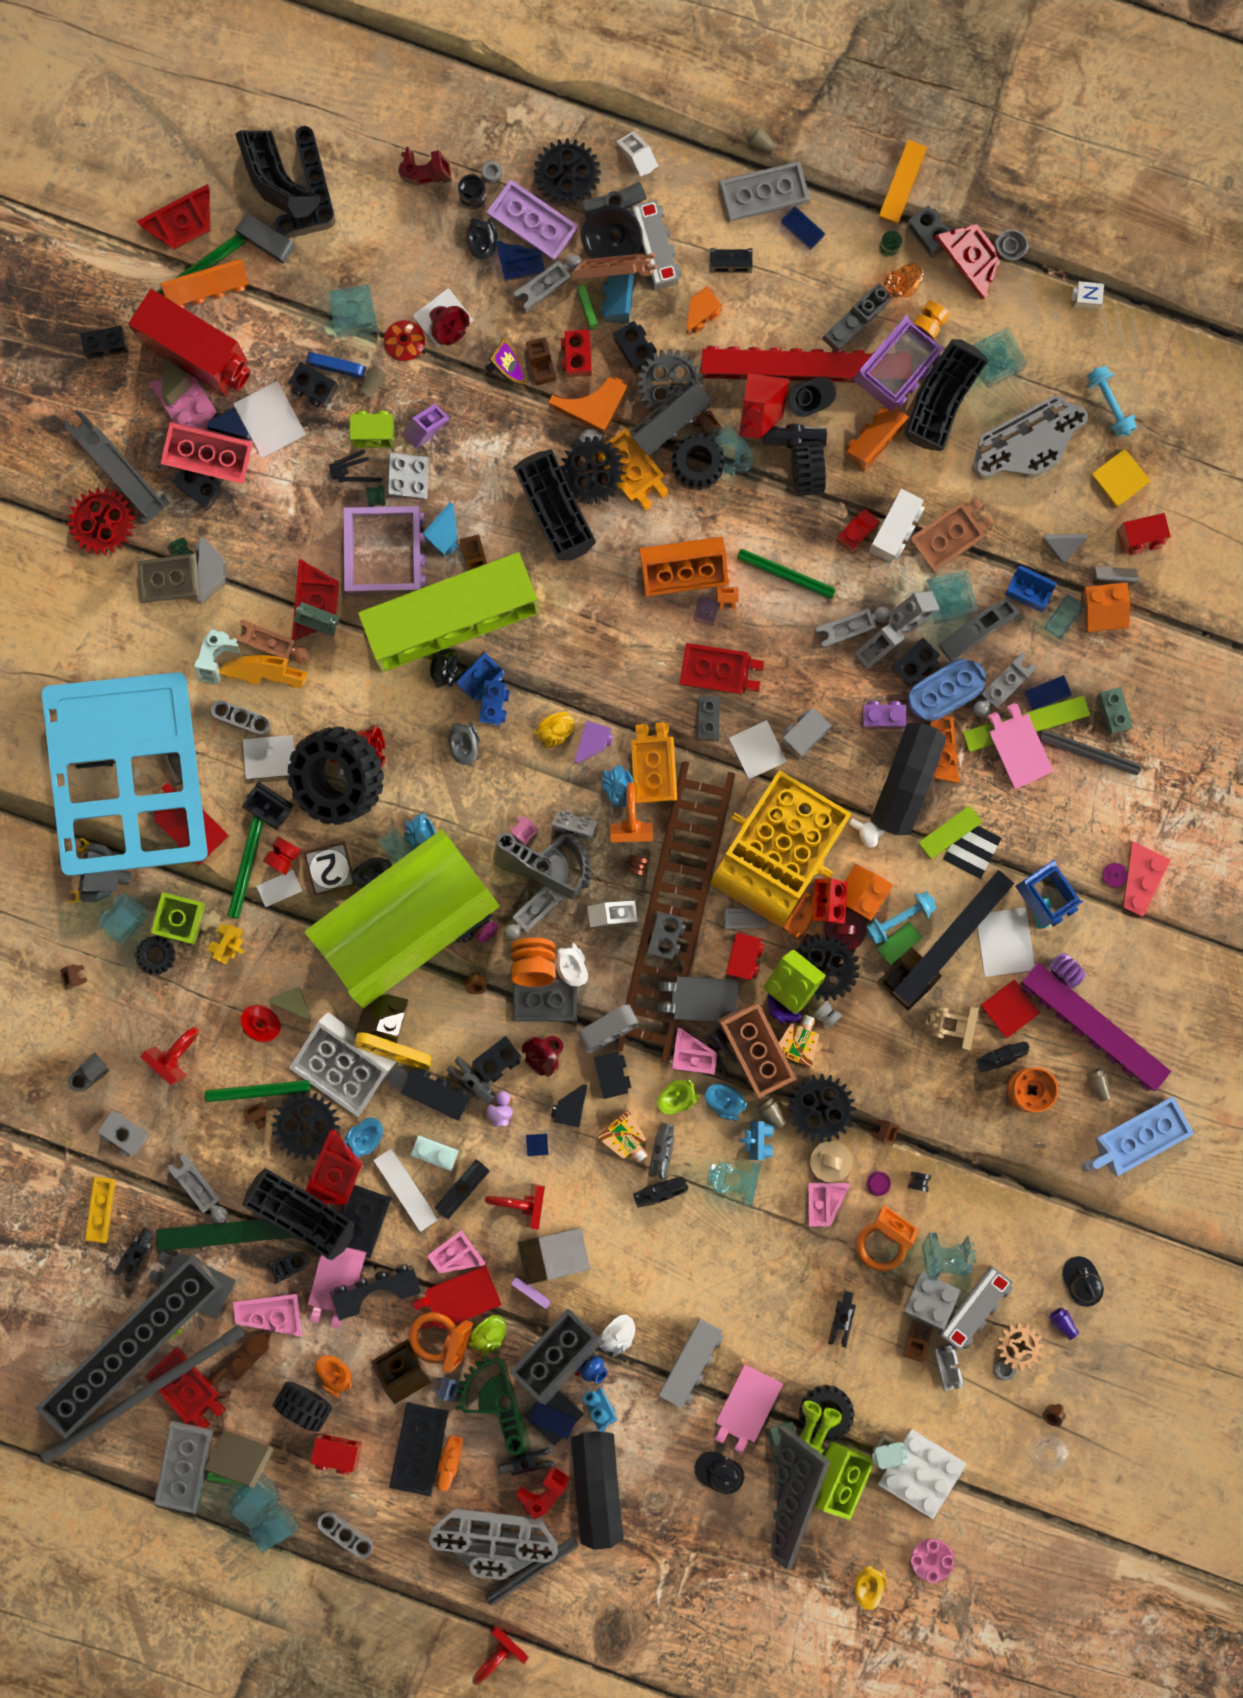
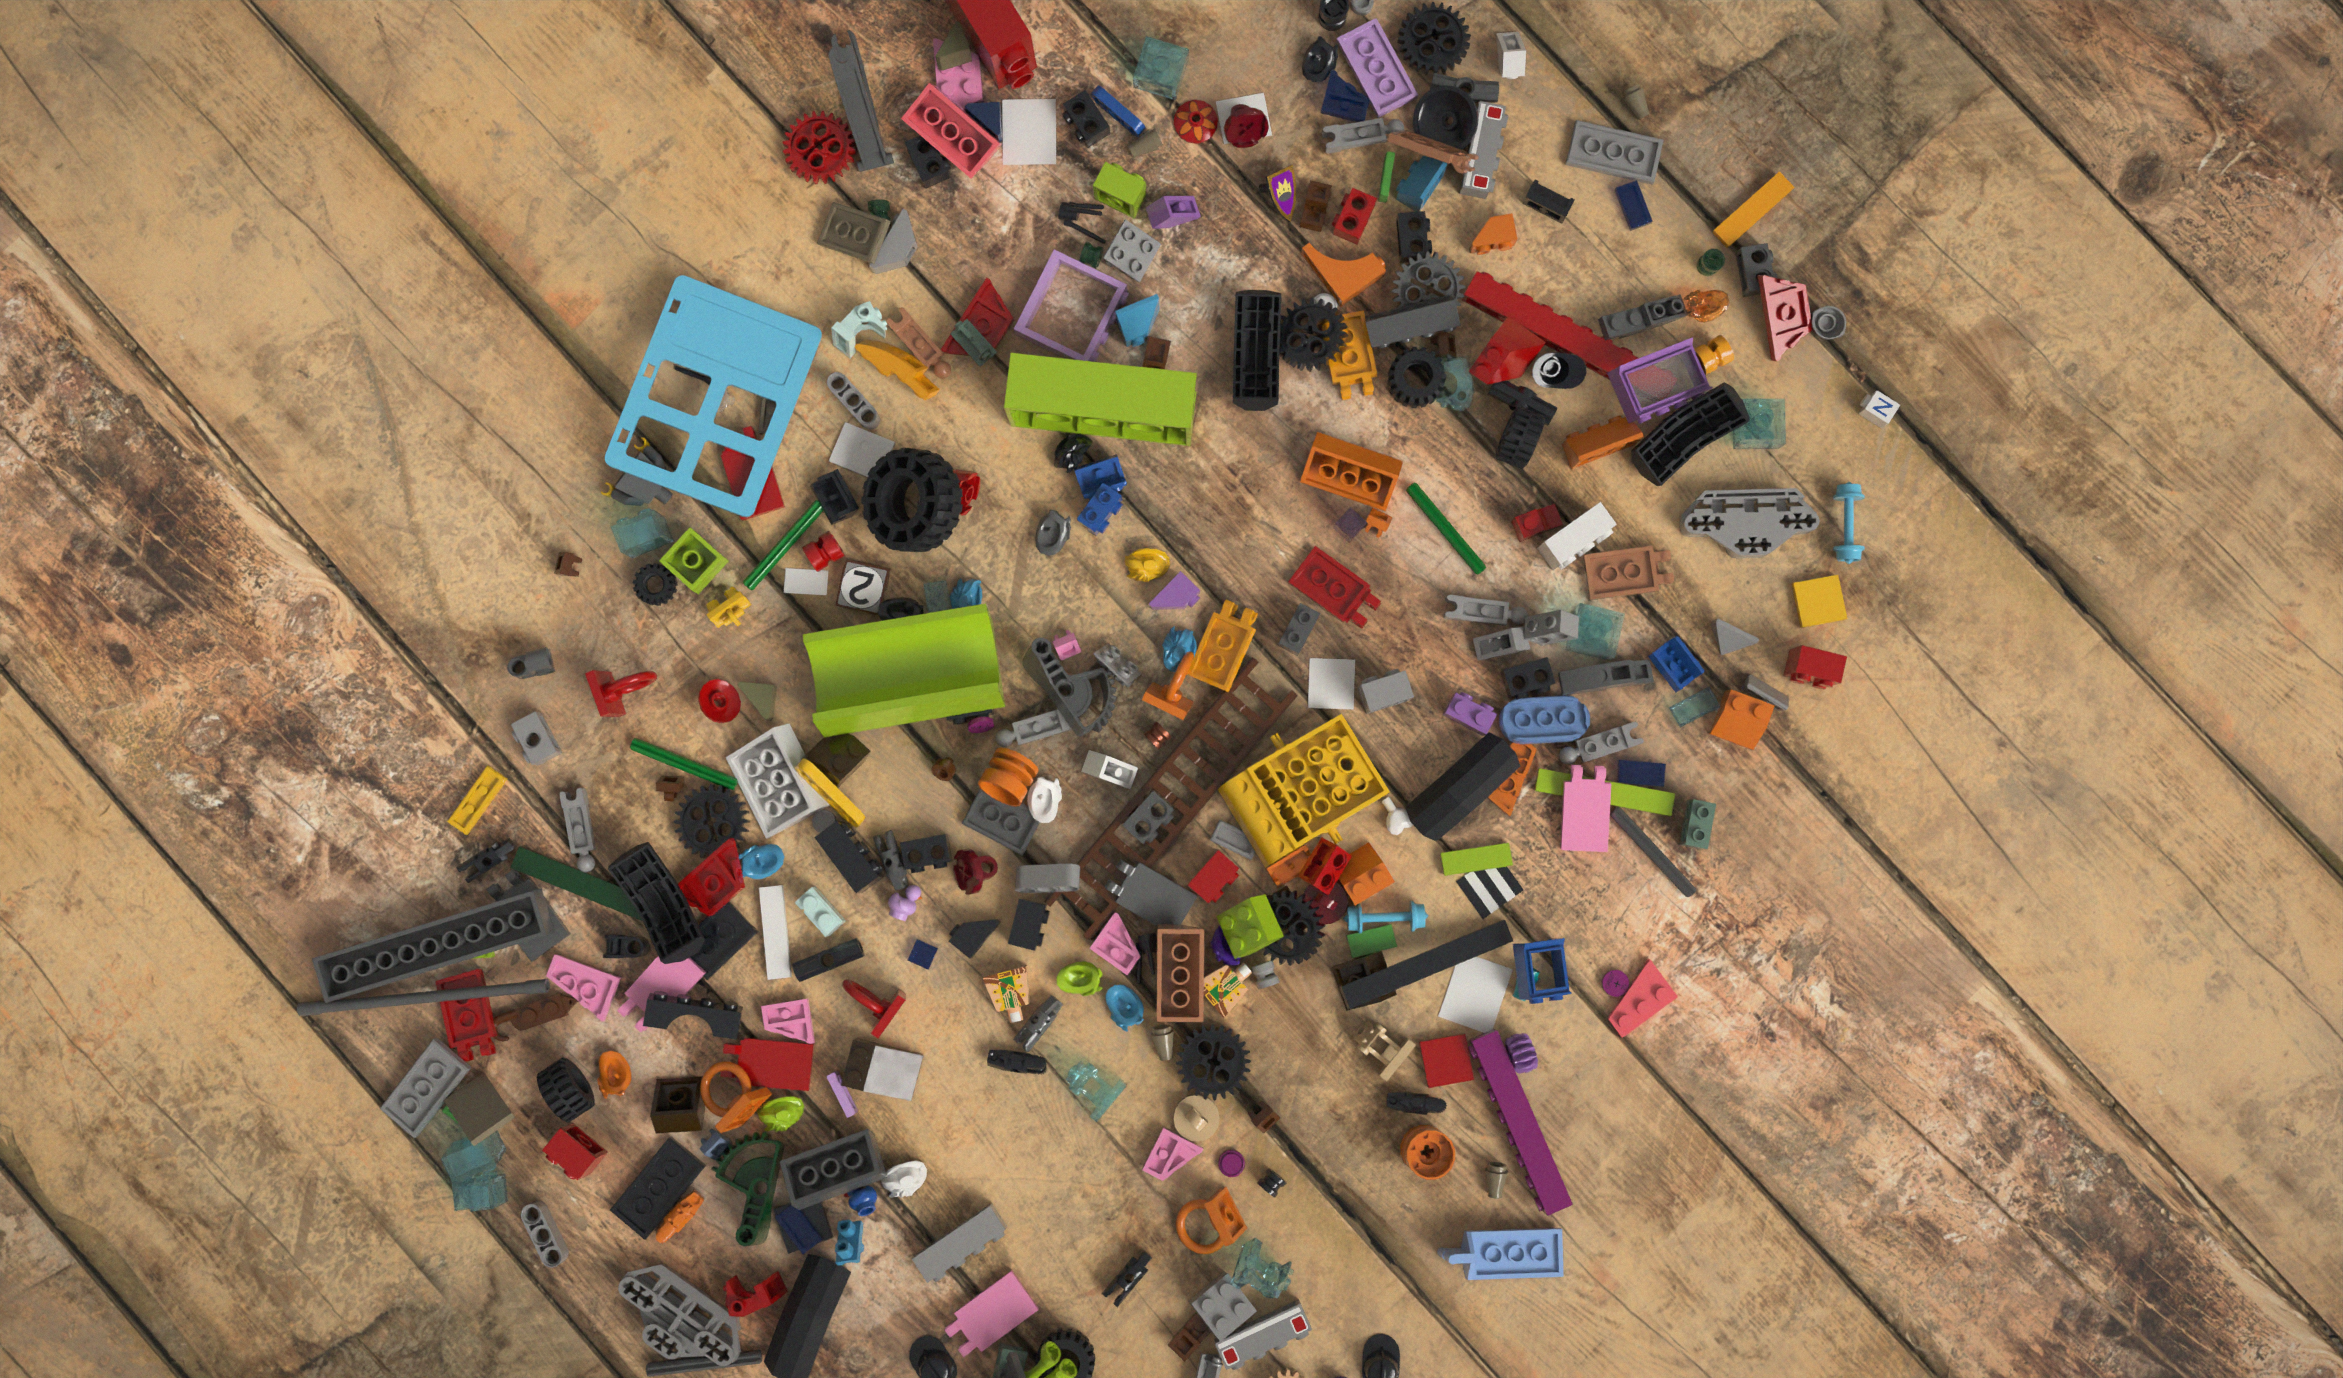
camera: 30 degrees right, 0 degrees up
(516, 1467) = (741, 1255): black hinge -> none
(755, 1140) = (1133, 1059): dark azure hips -> none

